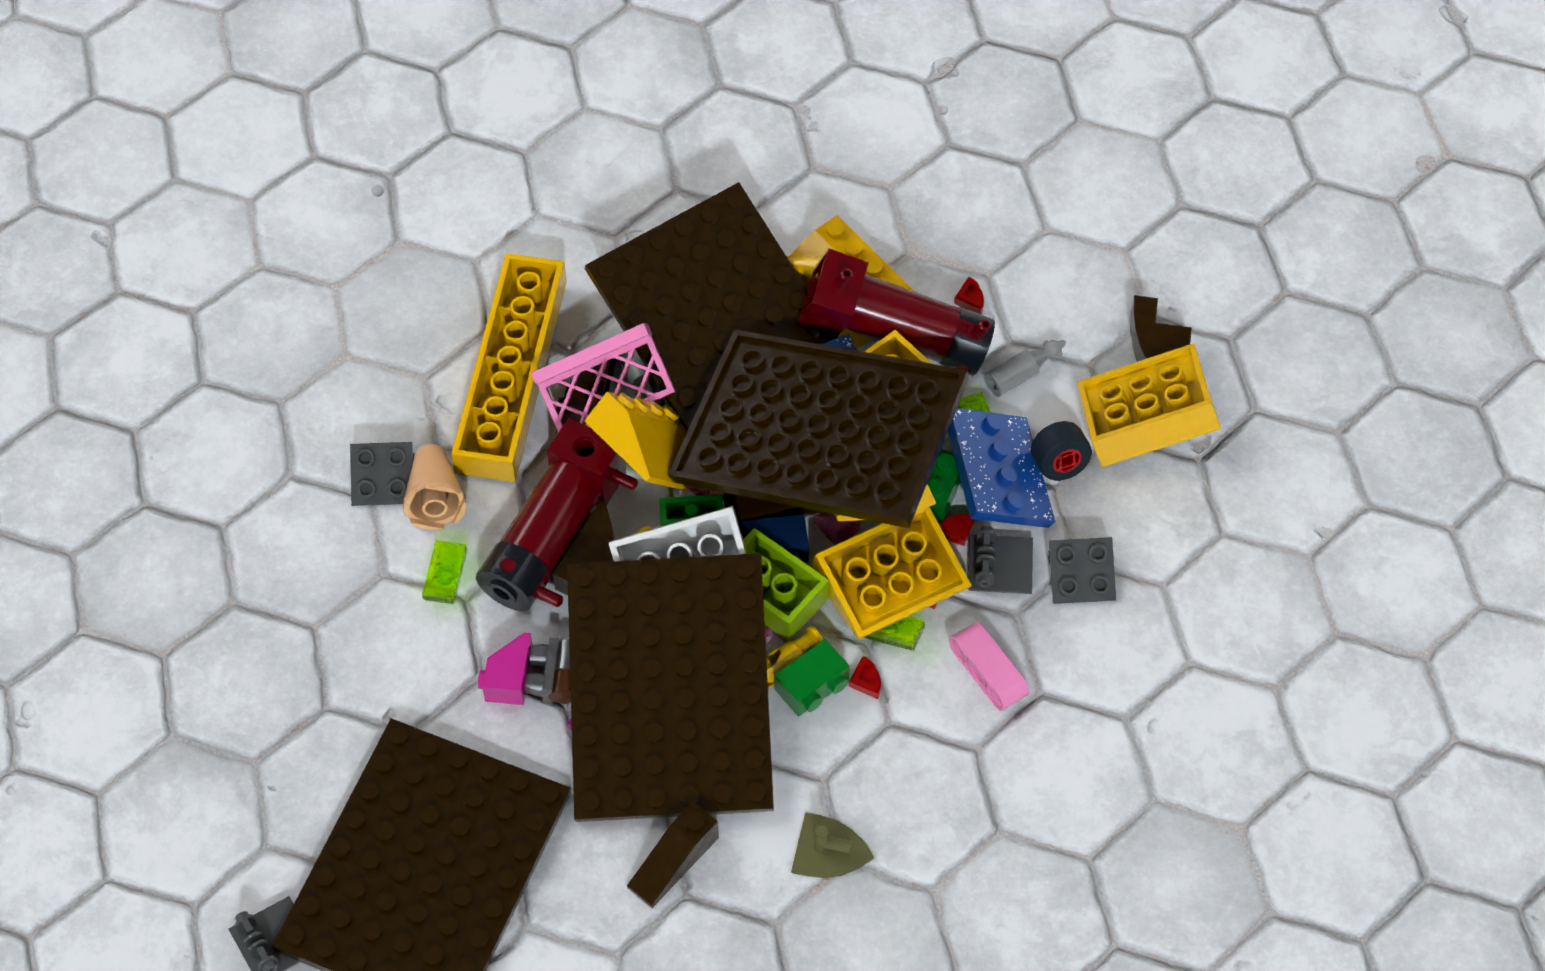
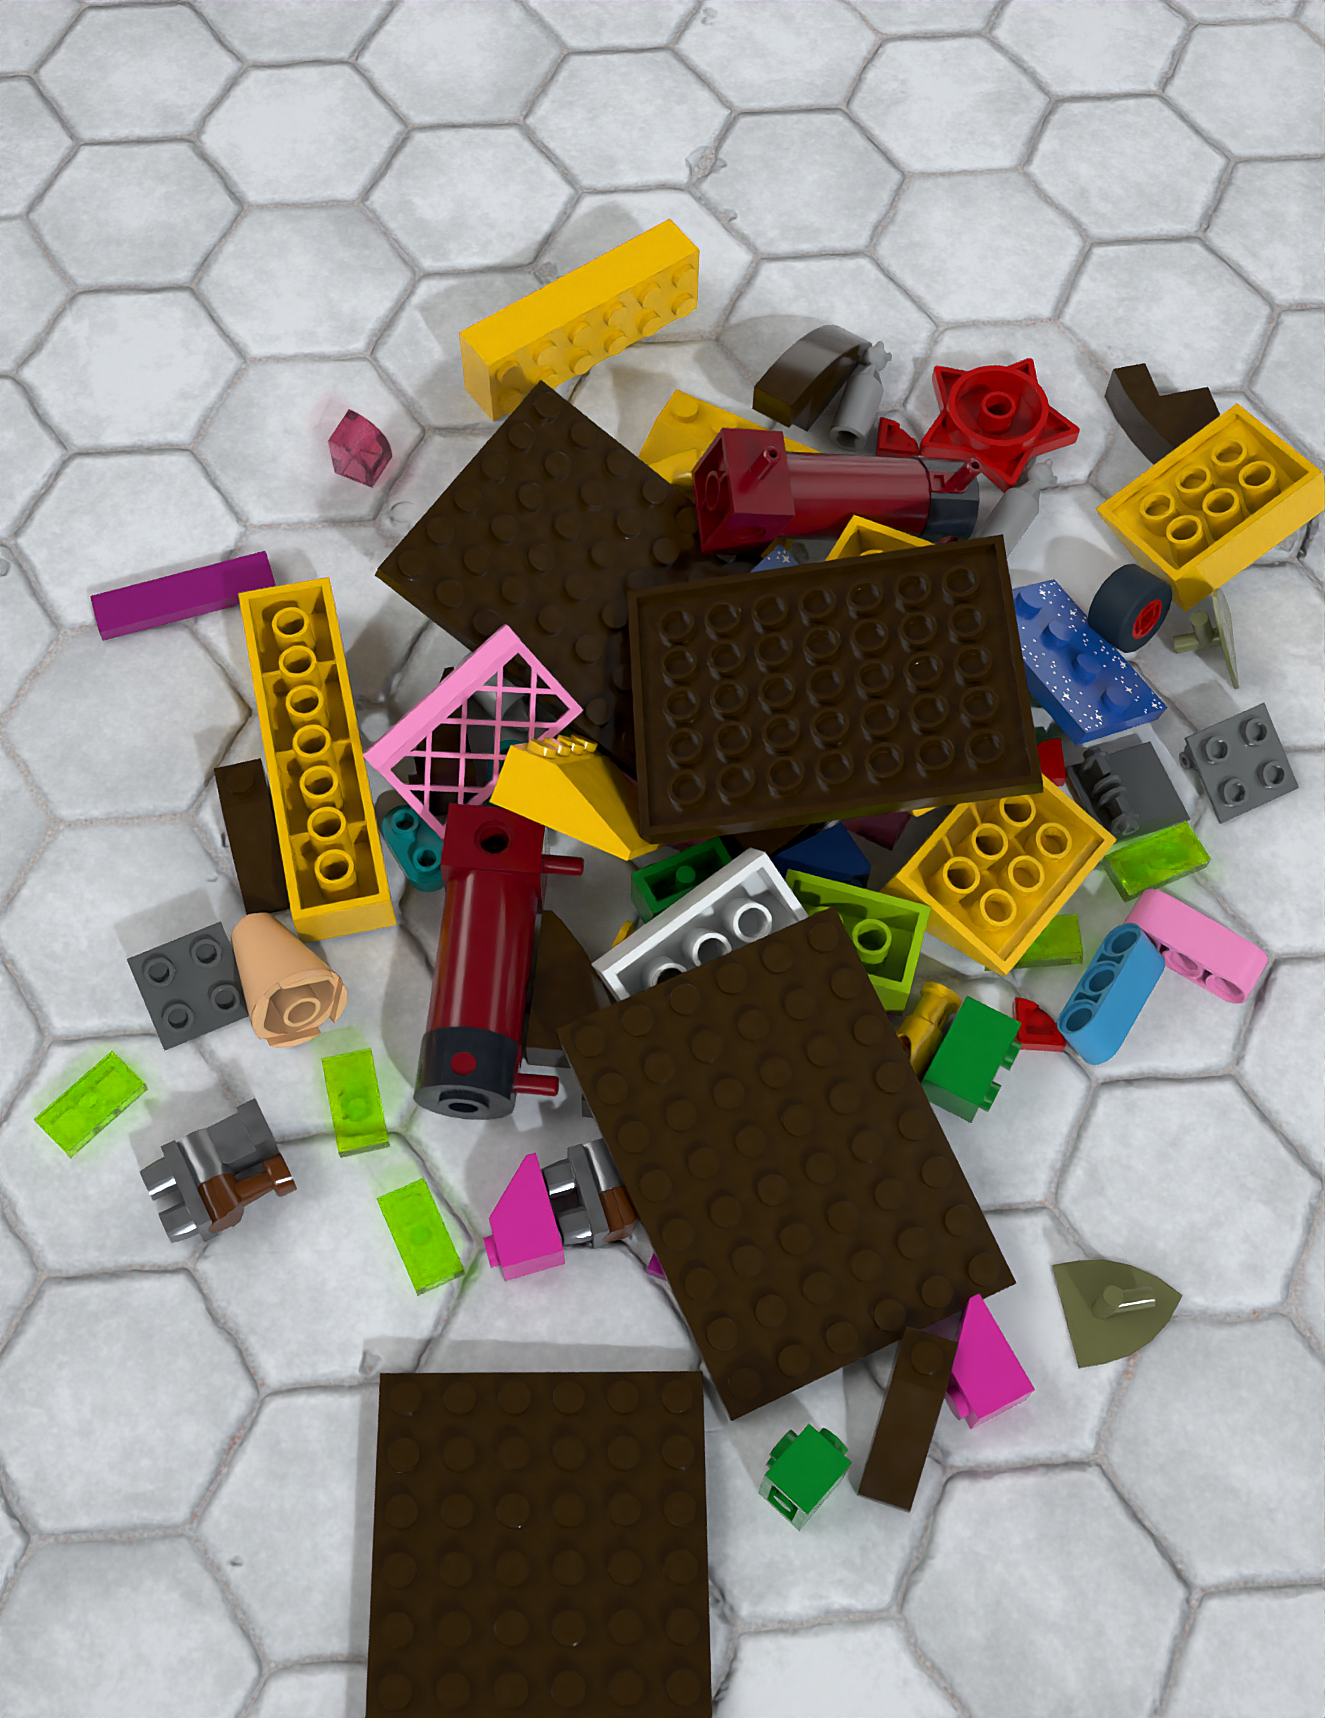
camera: 25 degrees left, 5 degrees up
(297, 519) = (91, 1104): none -> clear neon green plate
(344, 576) = (205, 1172): none -> flat silver hips
(448, 658) = (421, 1236): none -> clear neon green plate
(451, 398) = (253, 835): none -> dark brown slope
(476, 243) = (180, 595): none -> magenta tile
(542, 439) = (413, 846): none -> teal plate
(596, 856) = (804, 1473): none -> green brick
(624, 188) = (359, 449): none -> clear pink brick
(729, 847) = (985, 1370): none -> dark pink slope
(802, 149) = (580, 318): none -> yellow brick
(919, 672) = (1111, 993): none -> dark azure beam
(932, 233) = (808, 376): none -> dark brown slope
(960, 261) = (860, 402): none -> light grey wheel
(994, 609) = (1155, 861): none -> clear neon green plate
(1042, 303) = (995, 418): none -> red plate
(1113, 481) = (1206, 636): none -> olive shield

